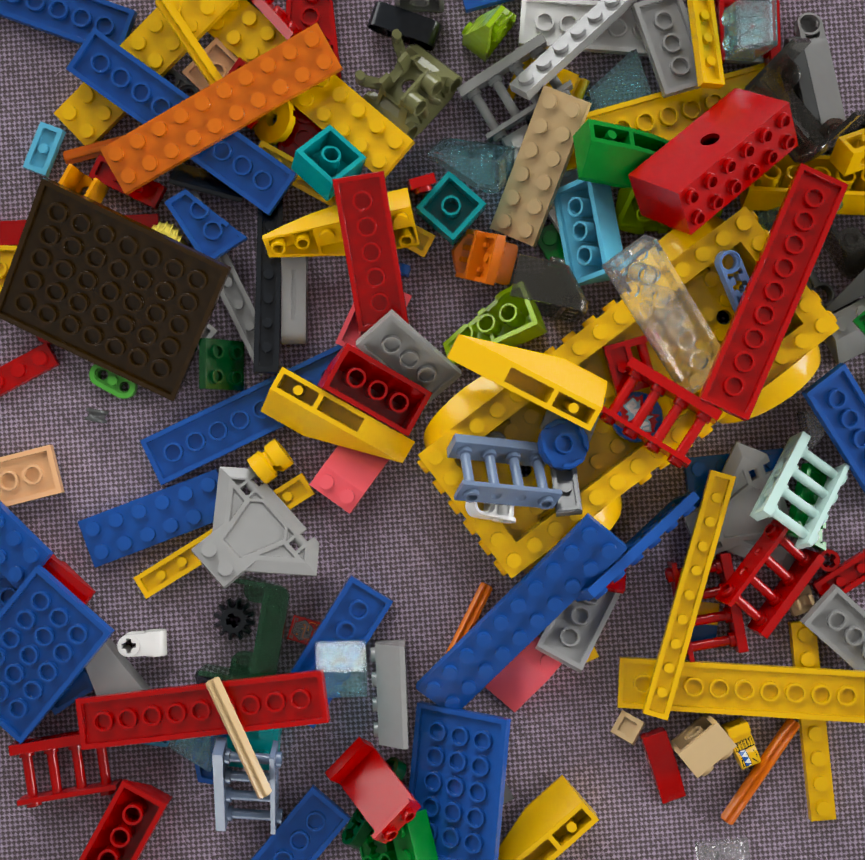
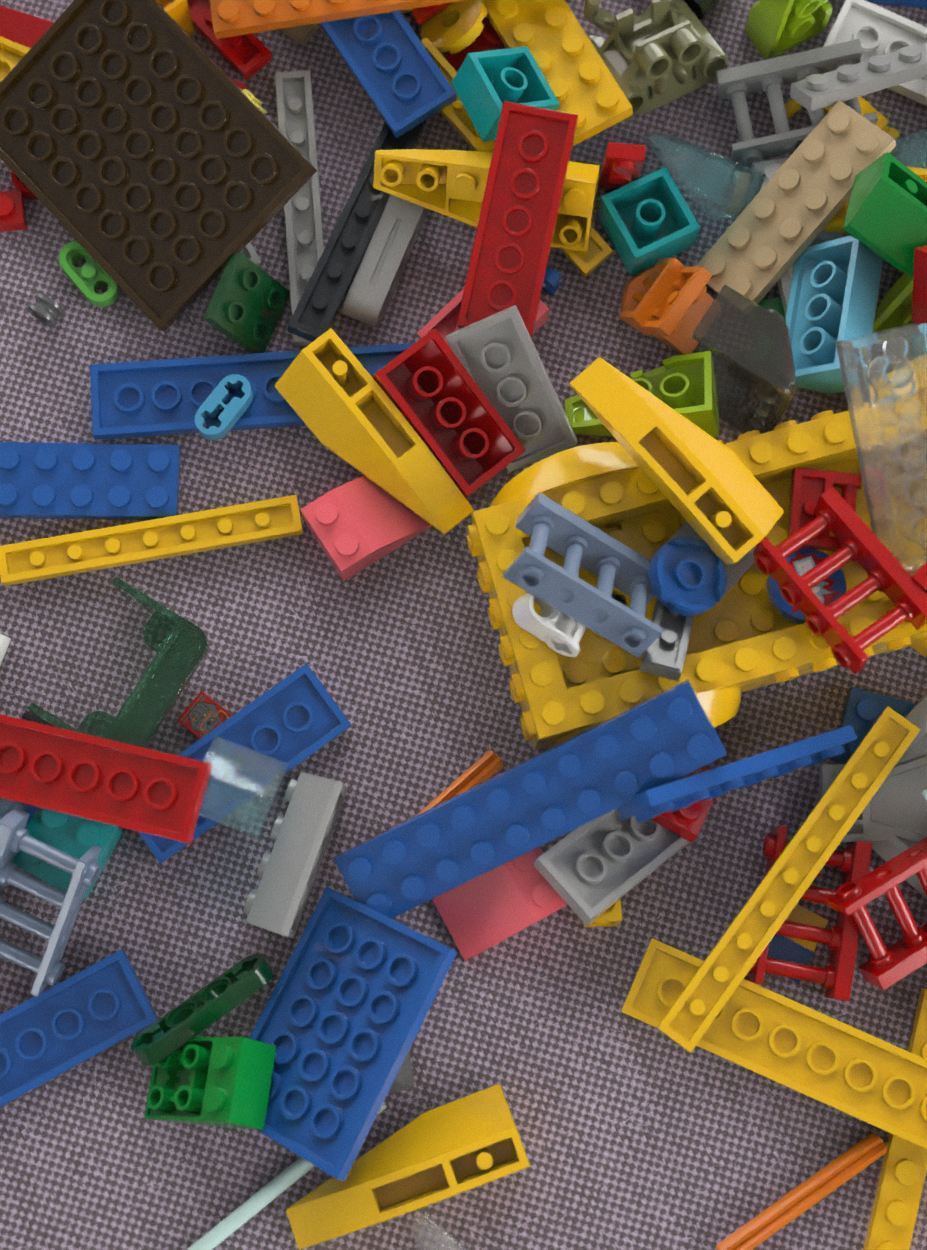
camera: 15 degrees right, 10 degrees down
(202, 181) = (325, 65): black slope -> none
(203, 226) = (302, 115): blue wing -> none
(228, 436) = (217, 401): none -> dark azure beam
(232, 627) = (102, 672): black gear -> none
(238, 737) = (46, 815): tan axle -> none
(253, 532) = (194, 544): light grey plate -> none
(270, 461) = (259, 461): yellow wheel -> none
(374, 789) = (210, 983): red panel -> none
(627, 727) = (625, 1049): tan plate -> none
(663, 764) = (657, 1129): red slope -> none
(703, 745) = (729, 1117): tan brick -> none
(745, 751) = (789, 1142): yellow leg -> none

